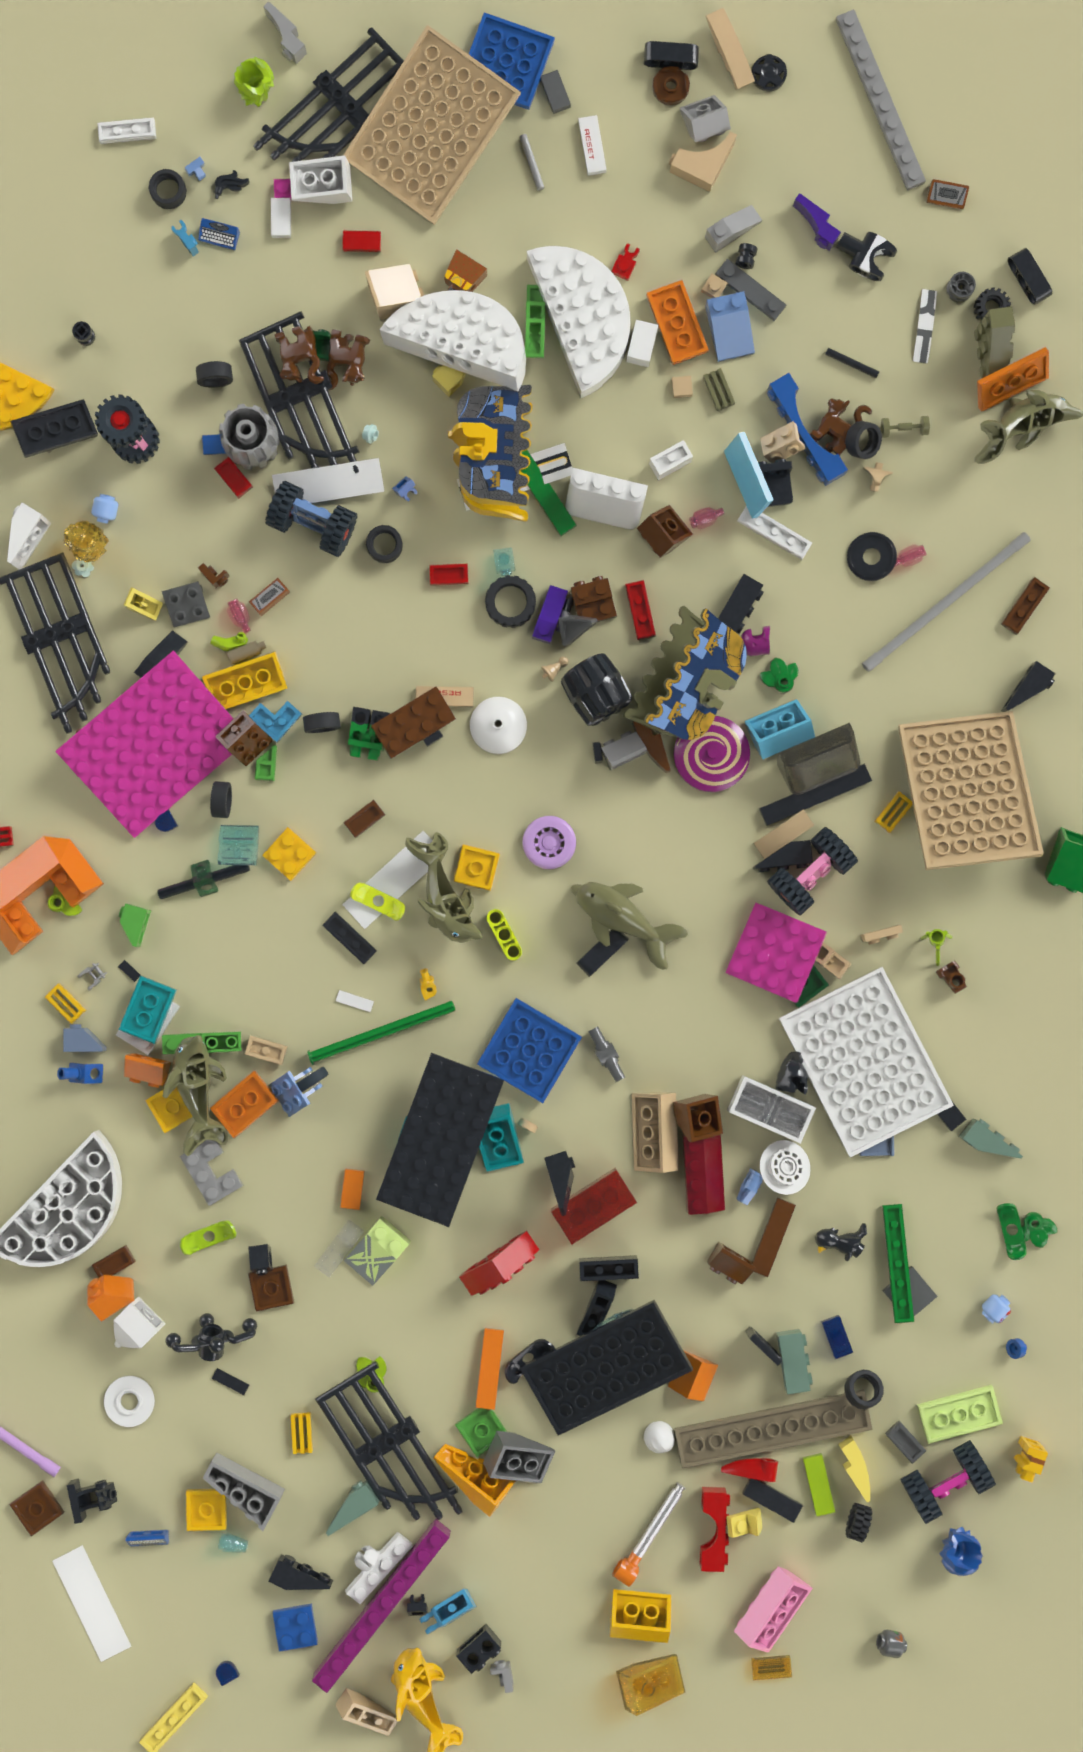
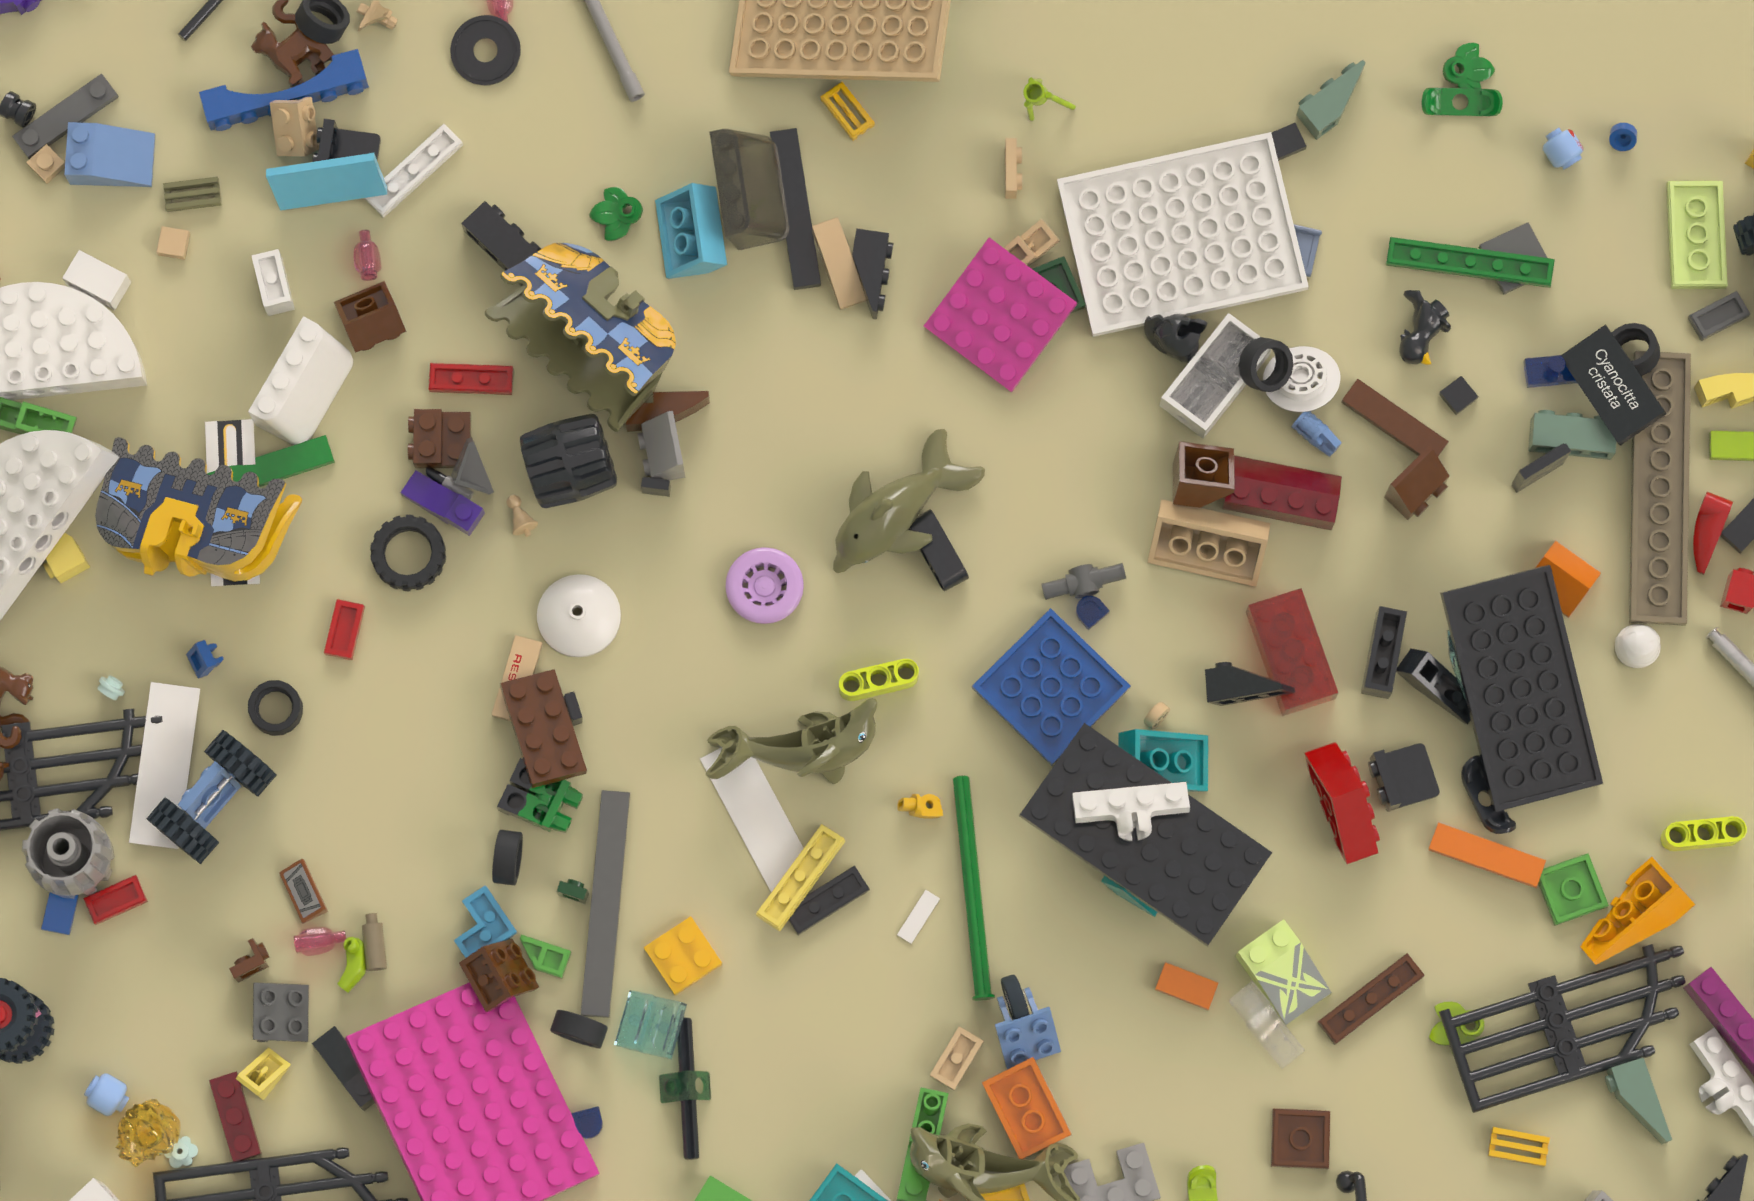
camera: 75 degrees left, 10 degrees down
(112, 595) = (235, 1117): none -> dark red plate
(246, 680) = (415, 951): yellow slope -> none
(260, 1259) = (1255, 1139): black brick -> none
(310, 794) = (605, 904): none -> dark grey tile
(312, 771) = (573, 890): none -> dark green plate
(359, 917) = (800, 877): none -> light yellow tile
(364, 818) = (661, 836): reddish brown tile -> none
(364, 894) = (798, 831): neon yellow piece -> none
(375, 1312) = (1371, 998): none -> reddish brown tile
(453, 1126) = (1131, 806): none -> white plate
(476, 867) = (772, 696): yellow tile -> none
(504, 561) = (349, 546): clear light blue bracket -> none
(517, 1458) = (1621, 846): dark grey slope -> none
(528, 1300) = (1403, 776): none -> black bracket
(541, 1520) = (1715, 827): none -> neon yellow beam
(588, 1063) = (1091, 611): none -> clear blue tile
(677, 322) = (81, 225): orange plate -> none
(715, 758) = (710, 330): magenta dish -> none
(757, 644) = (564, 229): magenta helmet -> none
(787, 1131) = (1282, 369): none -> black tyre
(802, 1276) = (1458, 395): none -> black tile
(833, 853) = (884, 201): black plate -> none
(834, 1383) = (1613, 385): none -> black tile
(951, 972) = (1089, 91): reddish brown plate -> none

